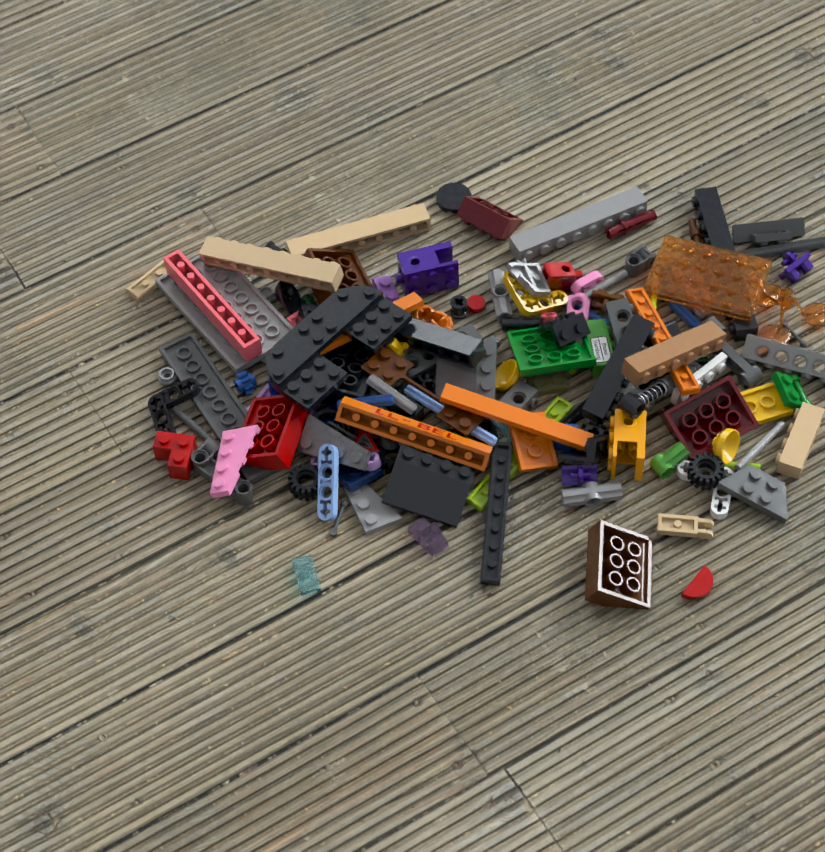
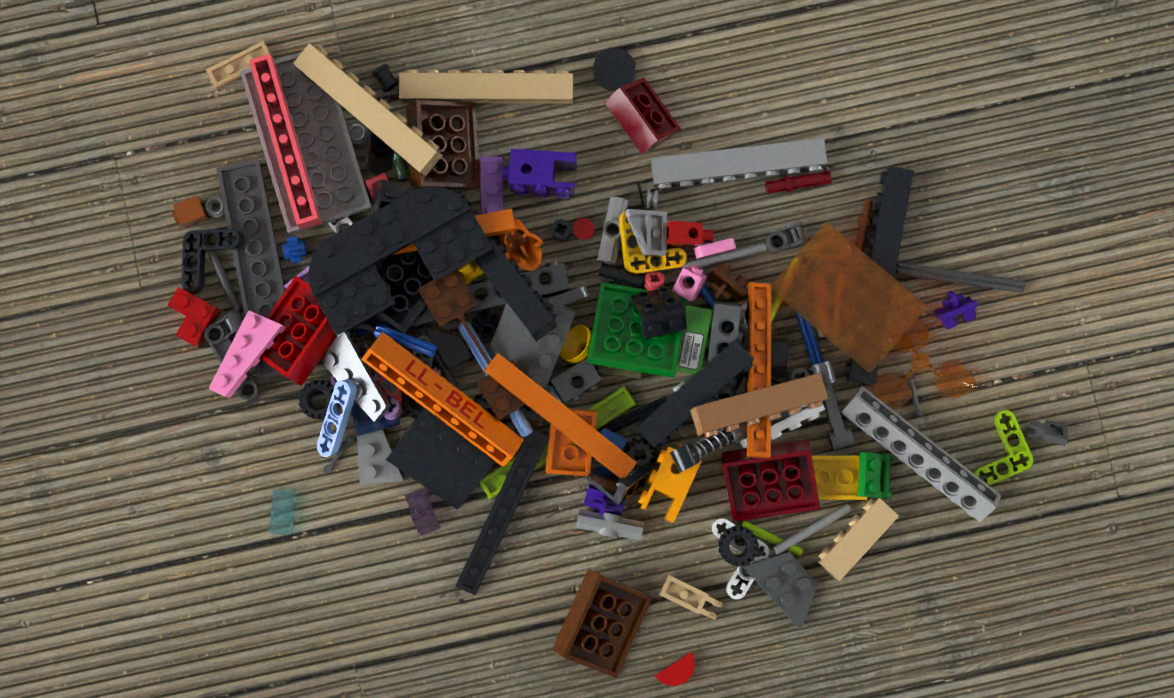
camera: 20 degrees right, 30 degrees up
(147, 384) = (190, 212): none -> dark orange brick
(399, 399) = (439, 336): light grey axle -> none
(665, 463) = (703, 516): bright green piece -> none
(726, 445) = (771, 524): yellow piece -> none
(768, 231) = (948, 252): dark grey bracket -> none

